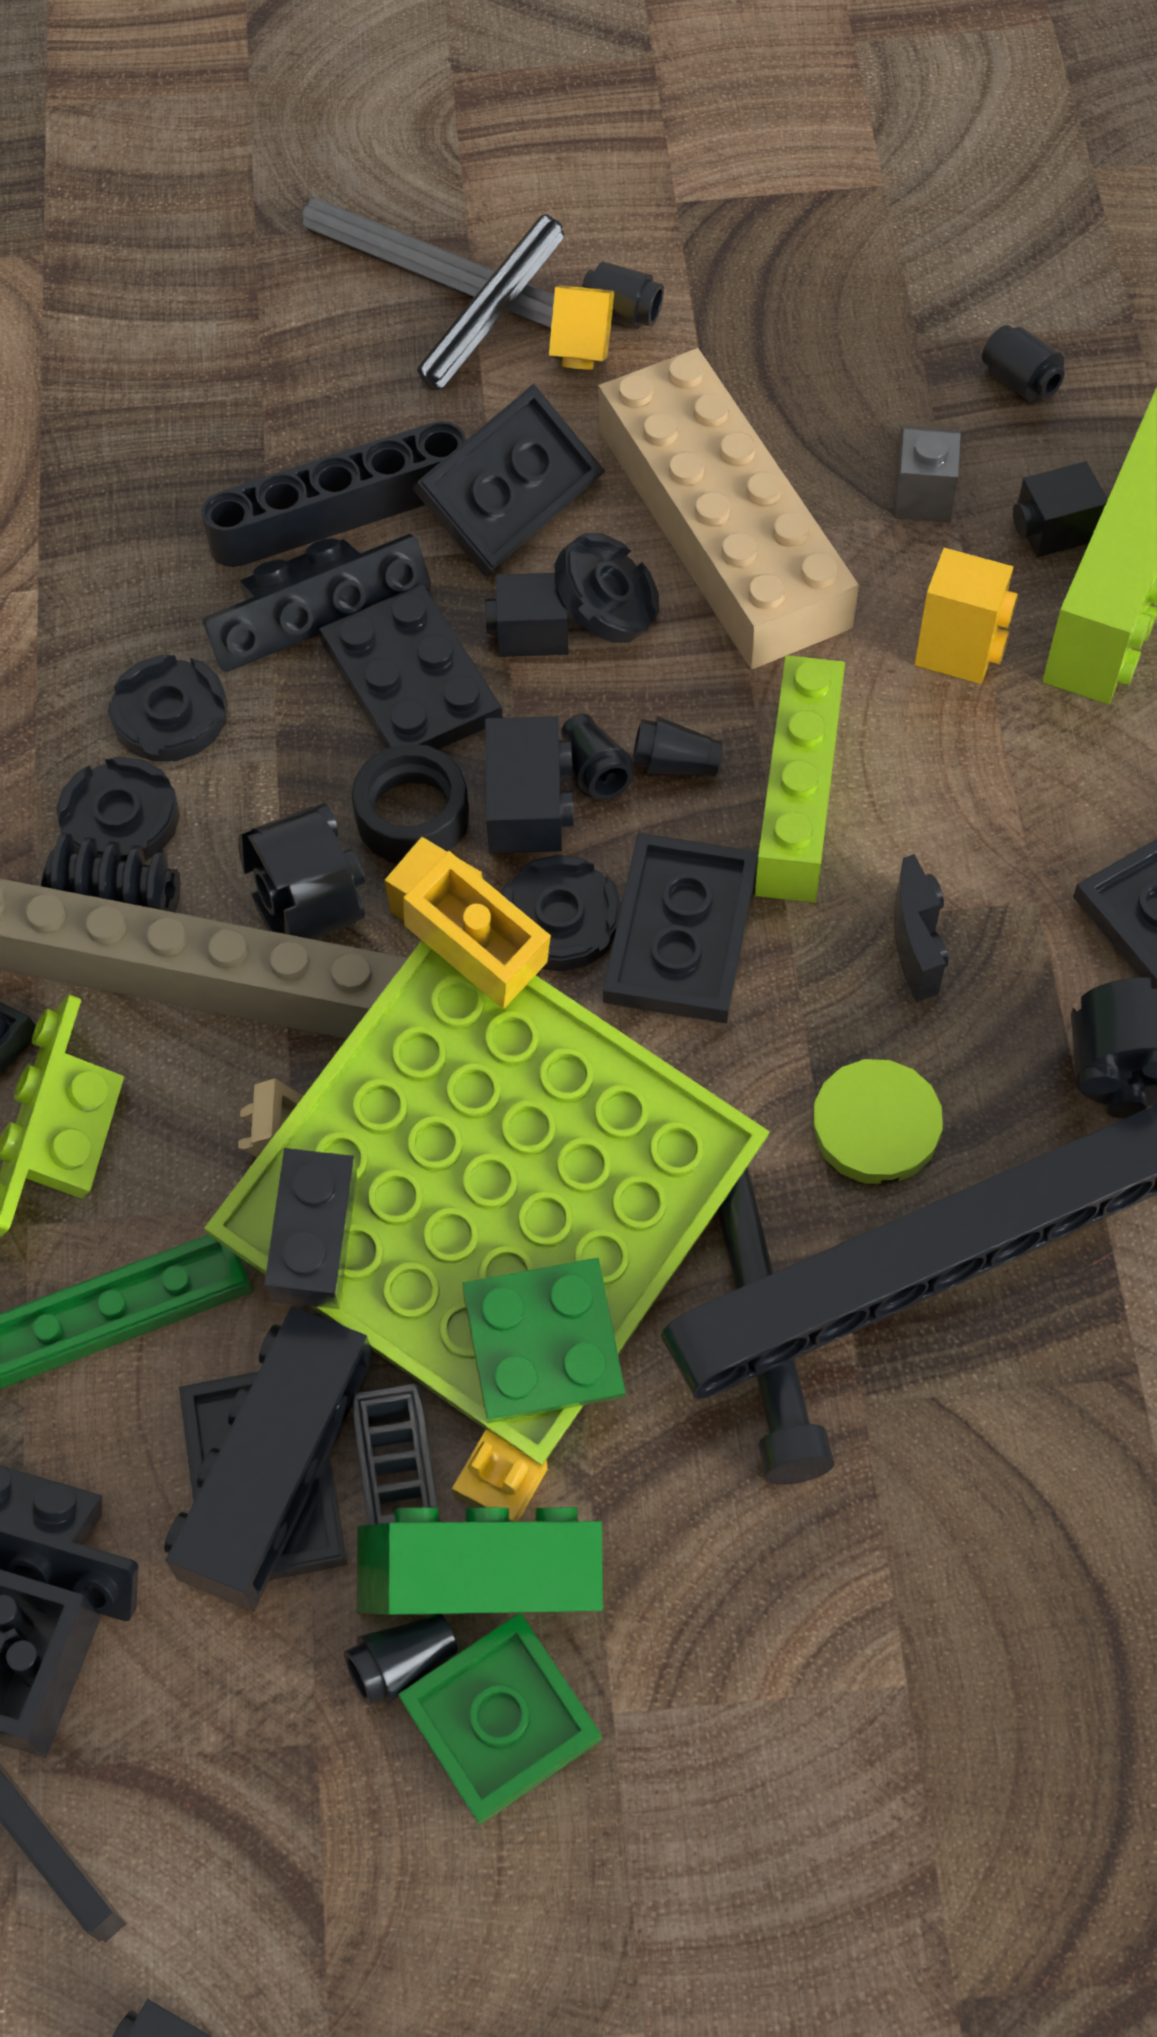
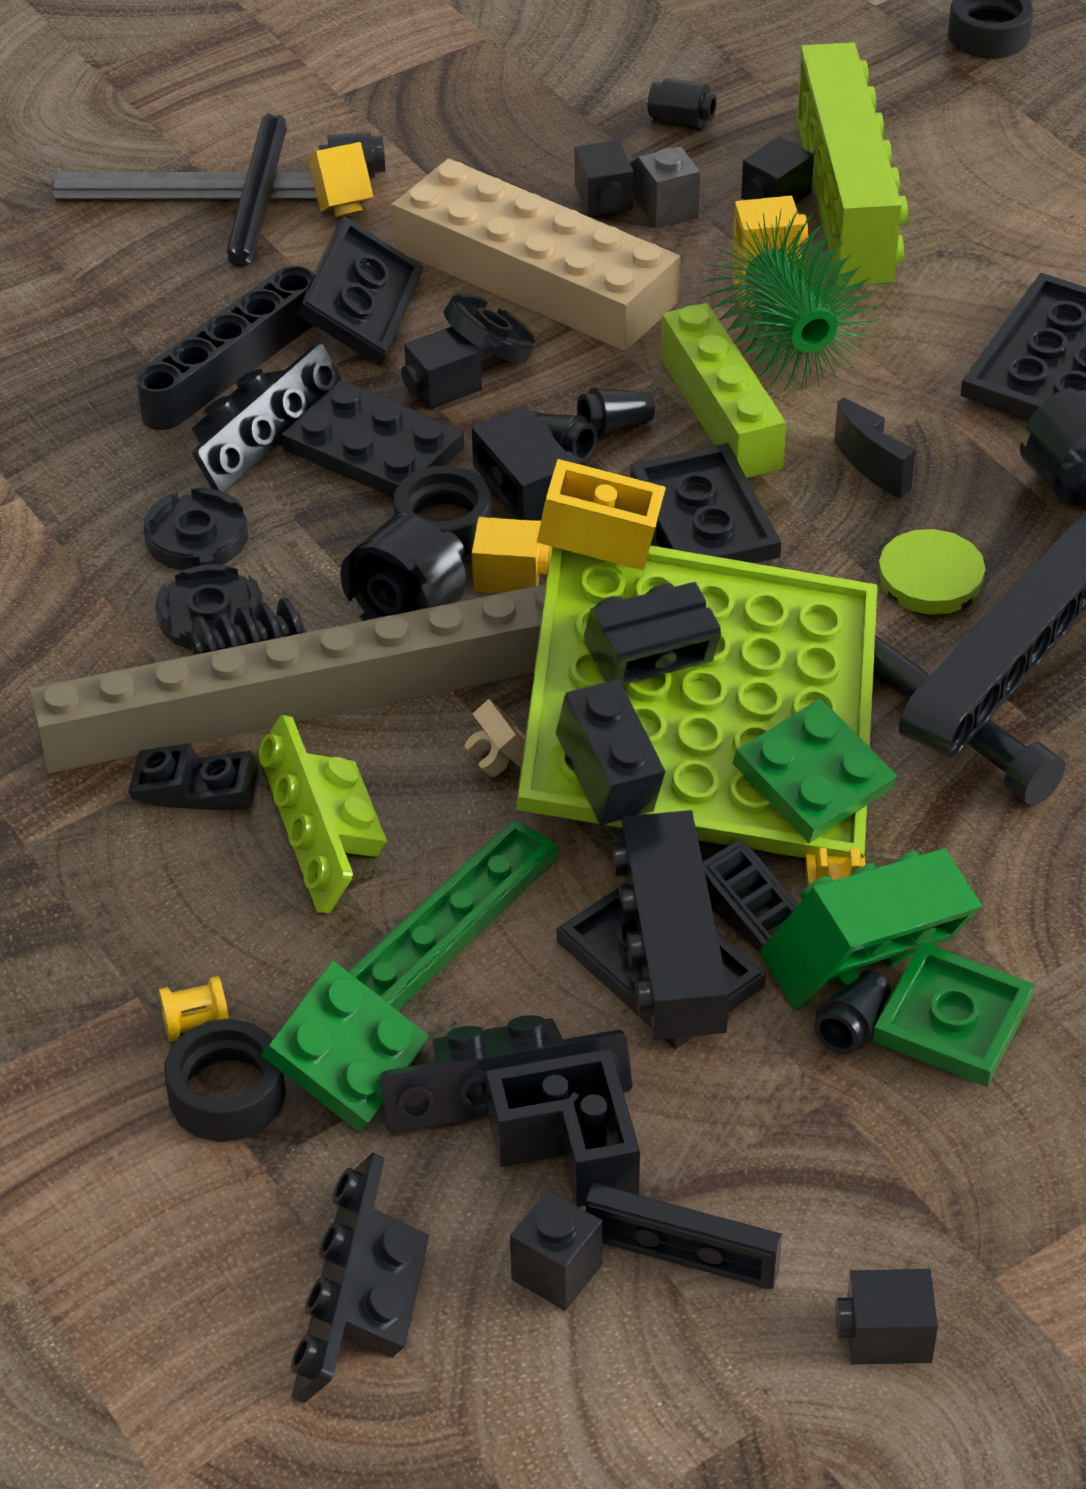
camera: 30 degrees left, 15 degrees down
(451, 1097) = (652, 633): none -> black brick
(861, 435) = (603, 178): none -> black brick
(932, 702) = (791, 300): none -> green piece

